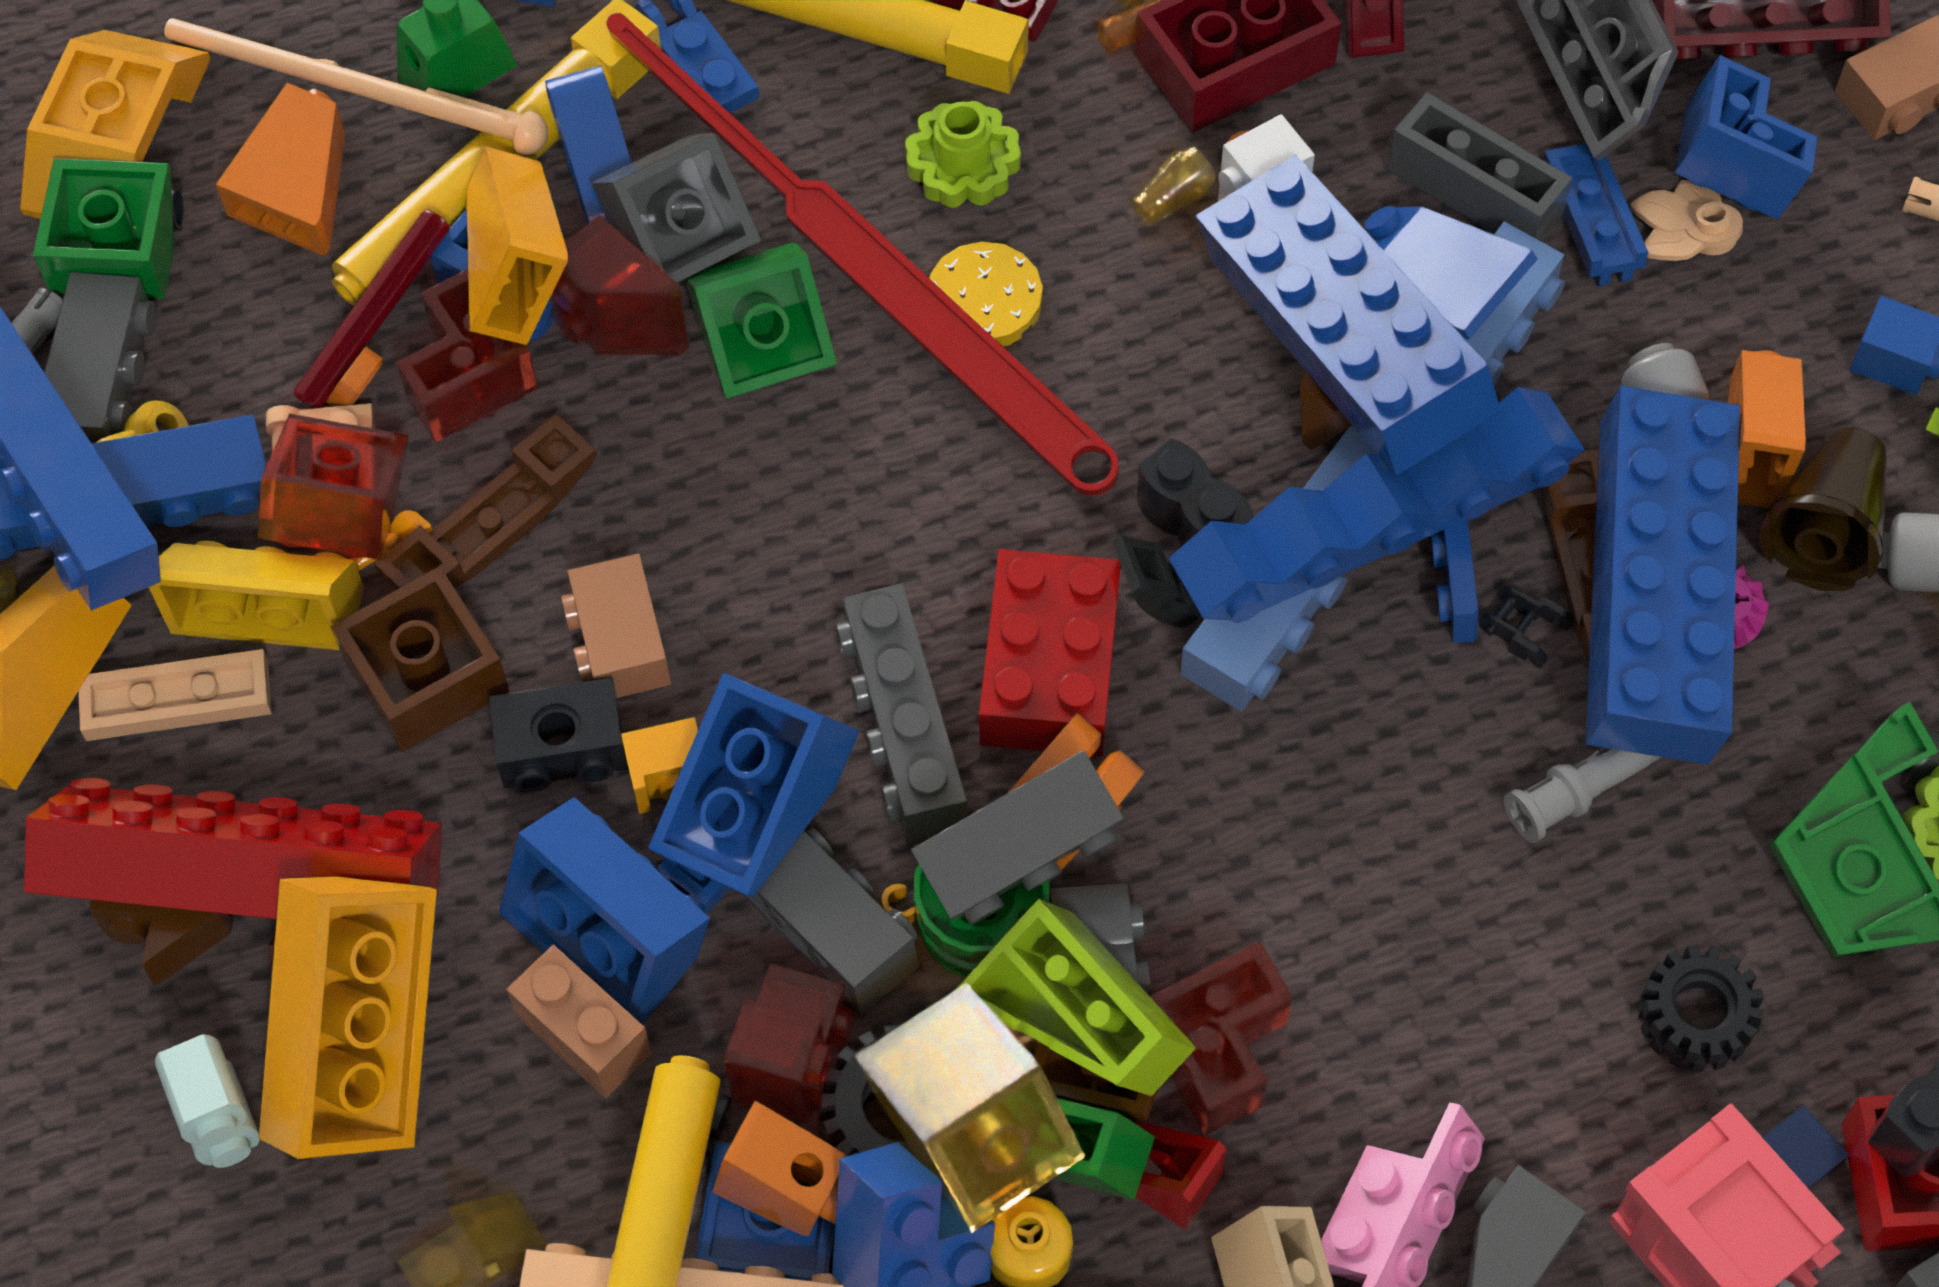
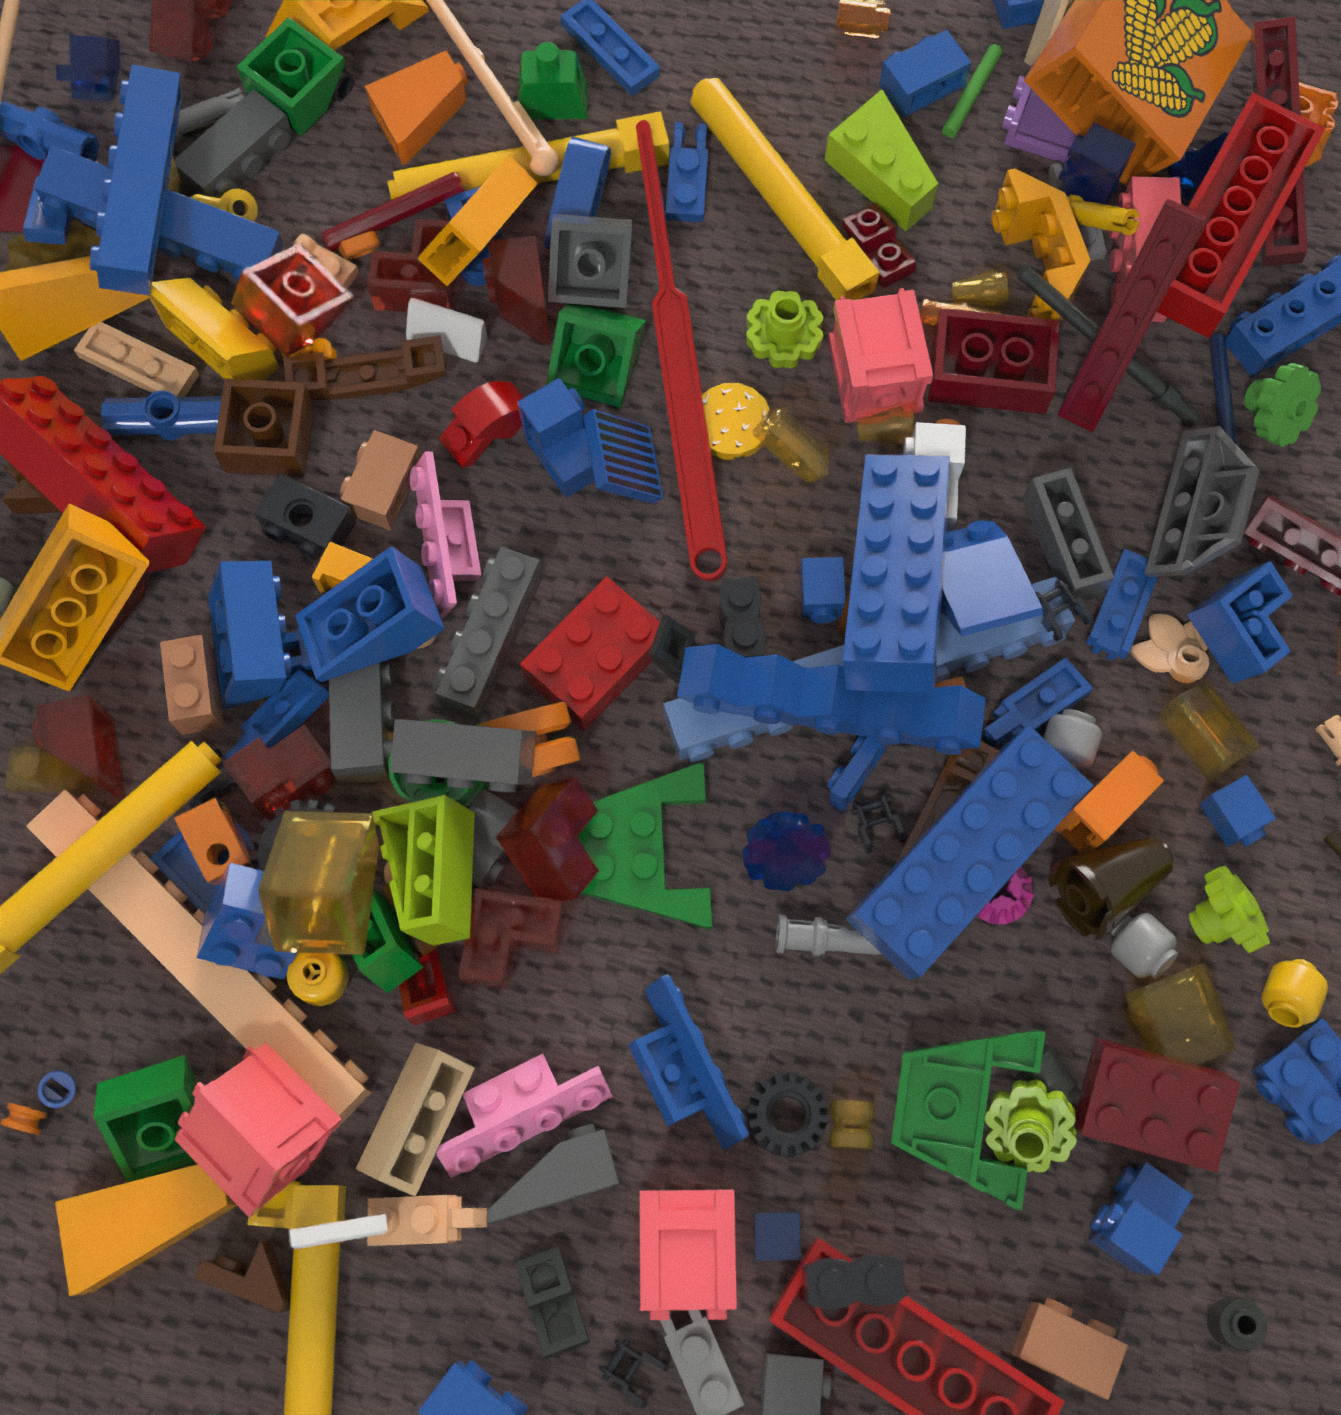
camera: 35 degrees right, 10 degrees up
(304, 710) = (143, 415): none -> blue piece
(504, 1176) = (83, 739): none -> clear red slope
(572, 393) = (460, 333): none -> white slope
(688, 473) = (480, 417): none -> red brick
(720, 983) = (282, 712): none -> blue hinge
(749, 633) = (447, 536): none -> bright pink bracket
(802, 441) = (557, 435): none -> blue brick
(898, 409) = (622, 457): none -> tile
(1091, 270) = (792, 445): none -> clear yellow slope
(1106, 108) = (879, 354): none -> coral container
(1180, 892) = (545, 841): none -> clear red brick
(1250, 408) = (822, 588): none -> blue brick
(1268, 853) = (628, 848): none -> green wing
(1459, 715) = (786, 851): none -> clear blue plant
(1544, 1039) = (681, 1069): none -> blue bracket
(1546, 236) = (1069, 603): none -> black piece
(1594, 368) = (1037, 702): none -> blue hinge
(1780, 966) = (851, 1114): none -> clear yellow wheel
(1796, 287) = (1208, 730): none -> clear yellow slope

